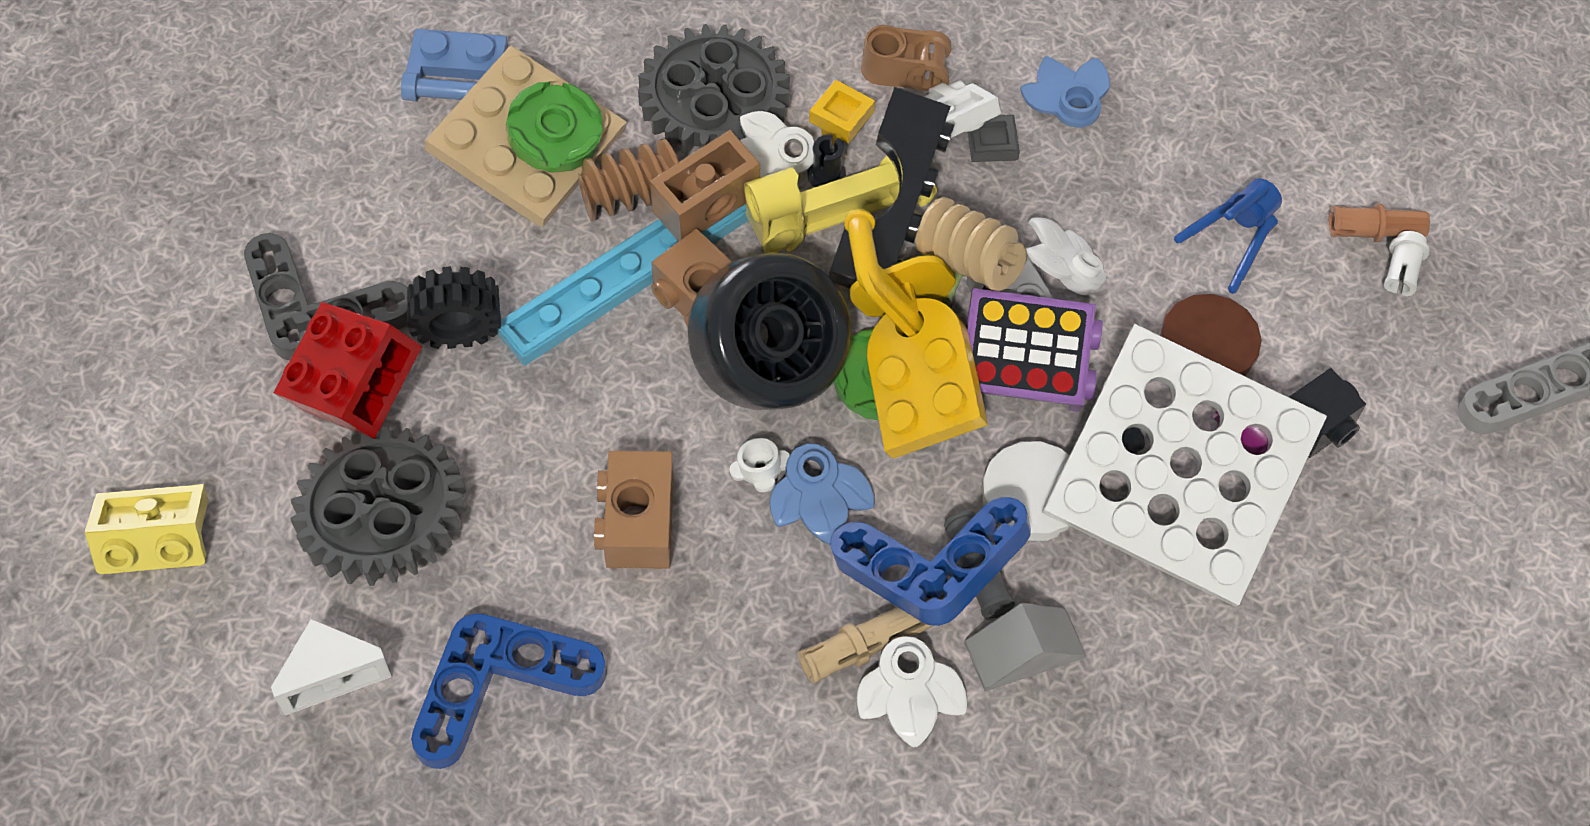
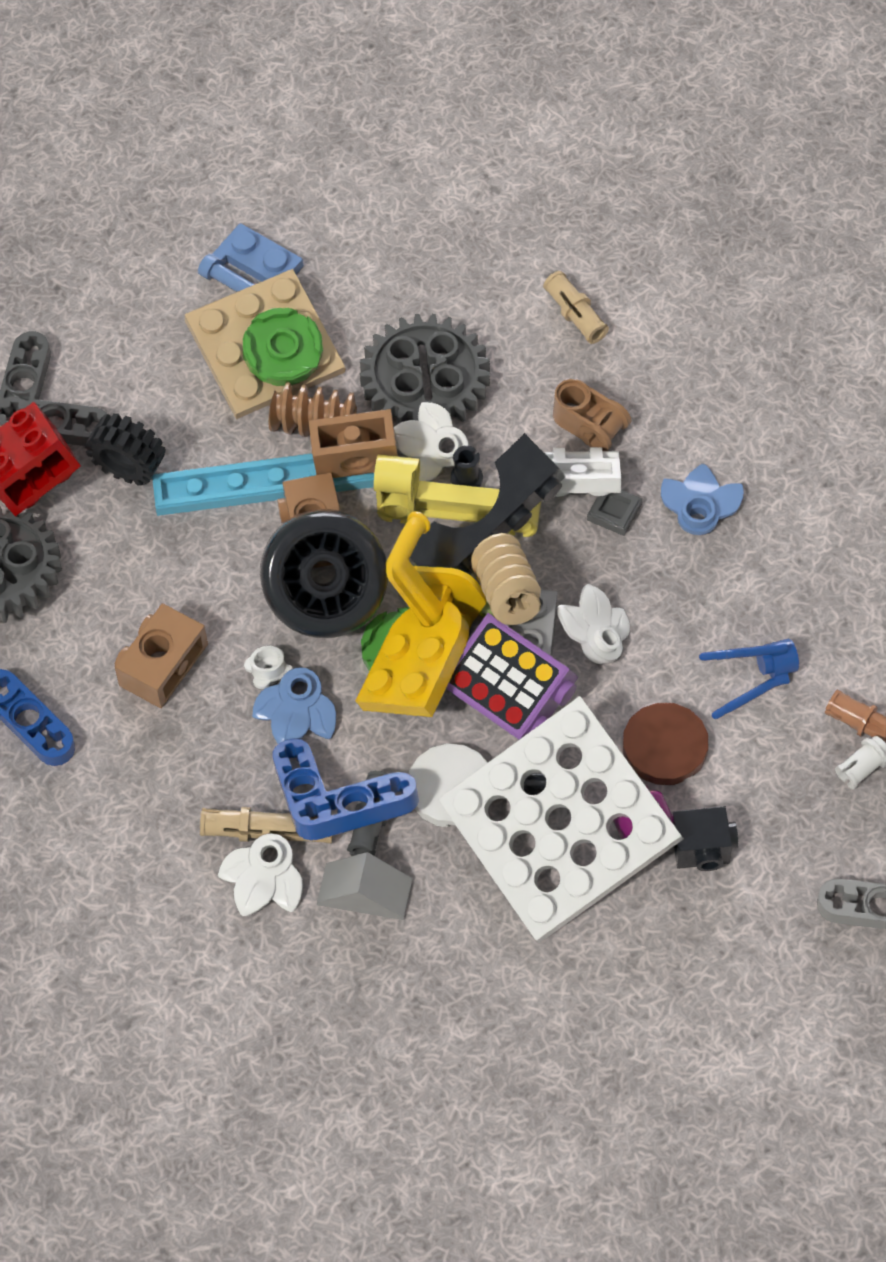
camera: 35 degrees right, 0 degrees up
(841, 112) = (502, 431): yellow tile -> none

